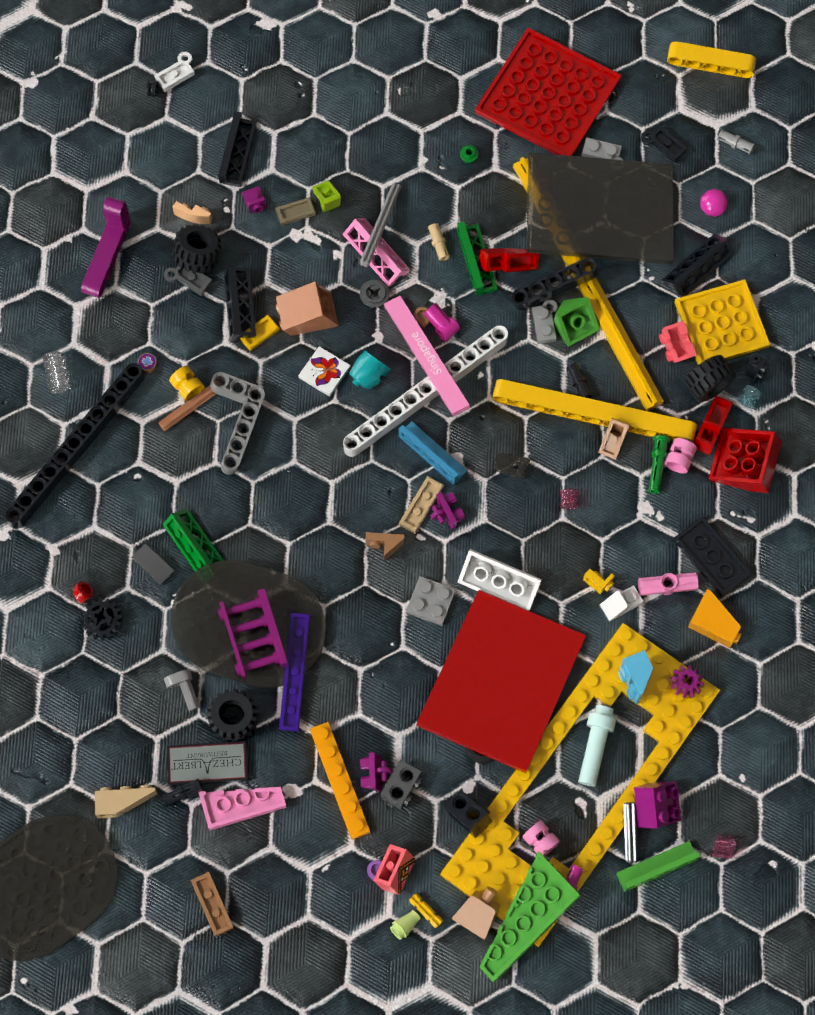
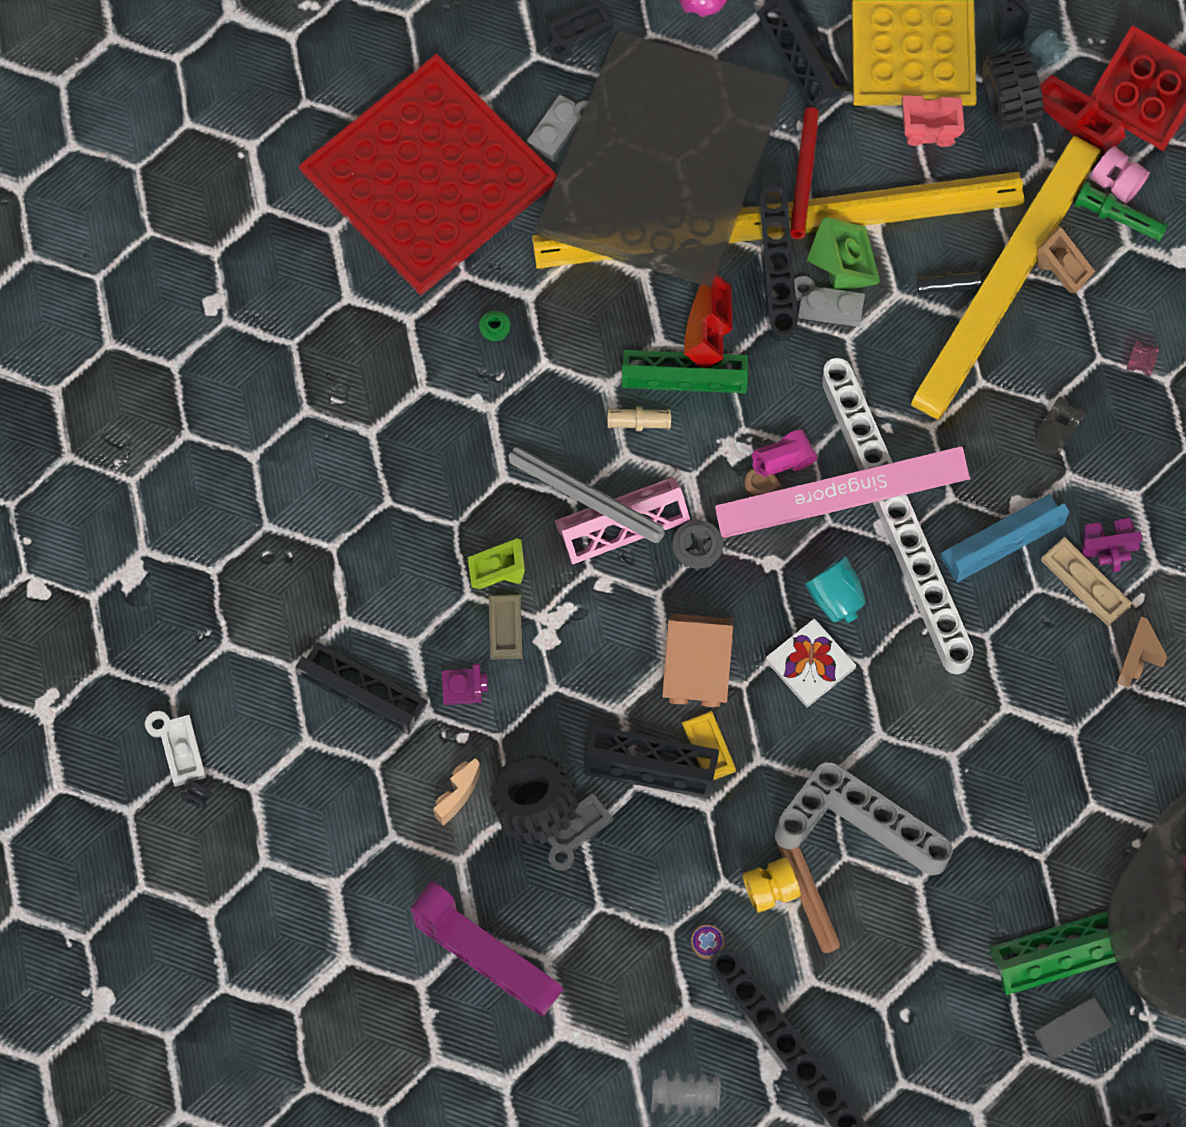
camera: 70 degrees left, 0 degrees up
(617, 284) = (804, 173): none -> red piece

